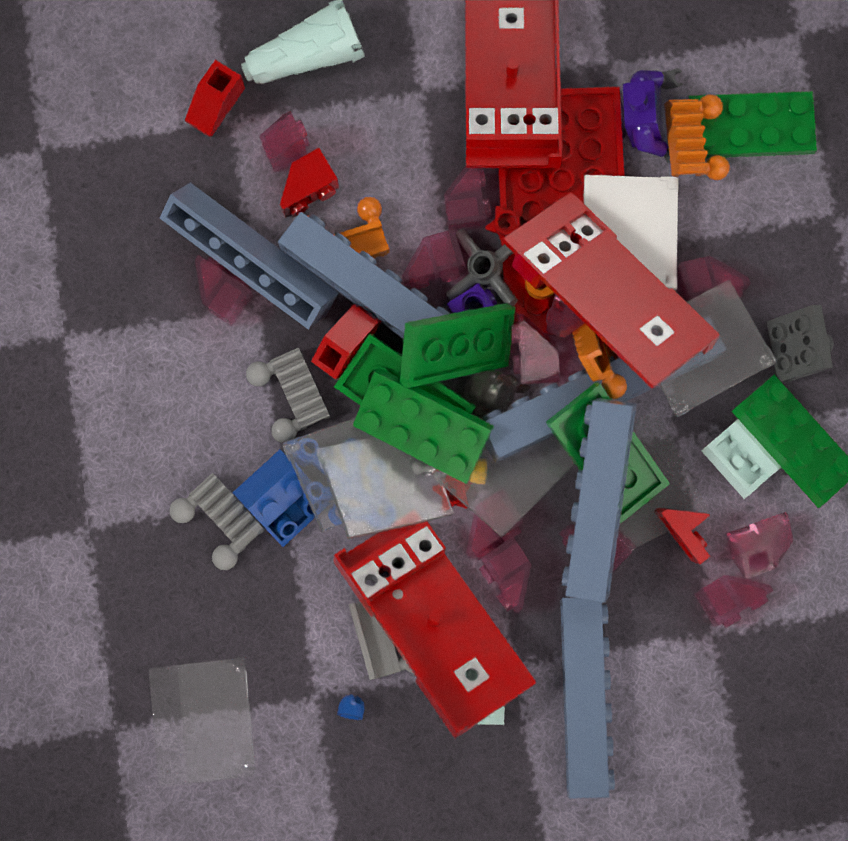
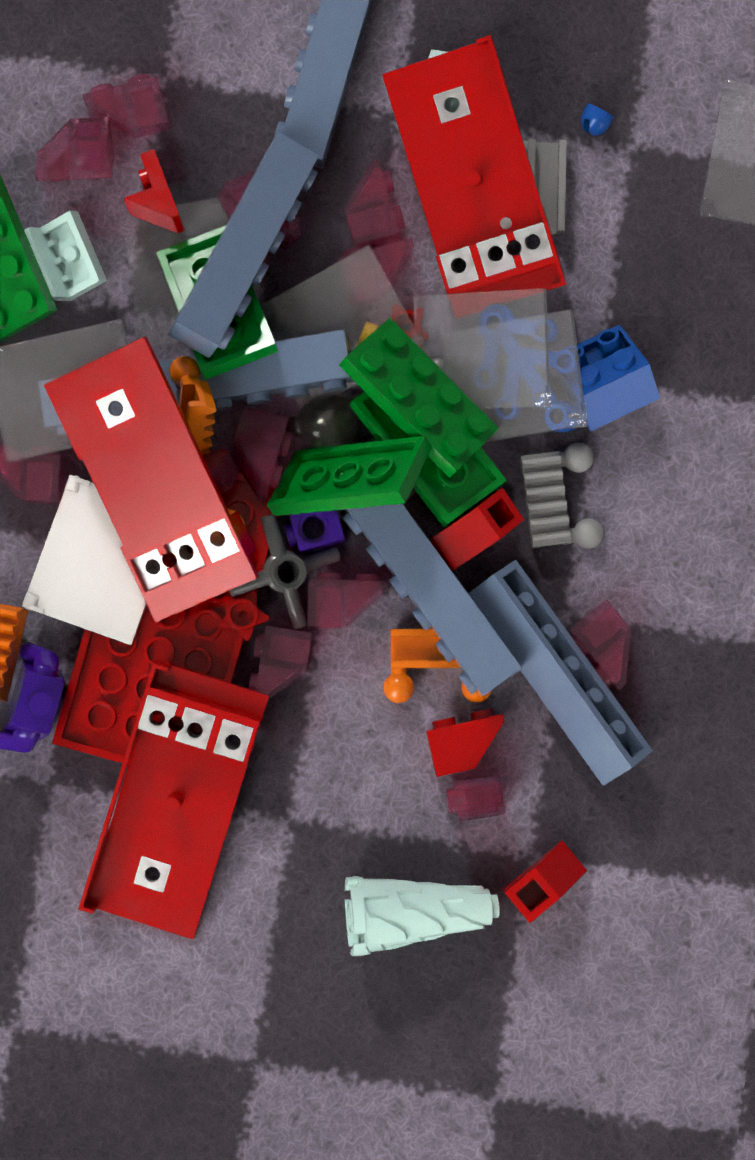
camera: 165 degrees left, 5 degrees up
(225, 512) = (676, 387): light grey gear -> none

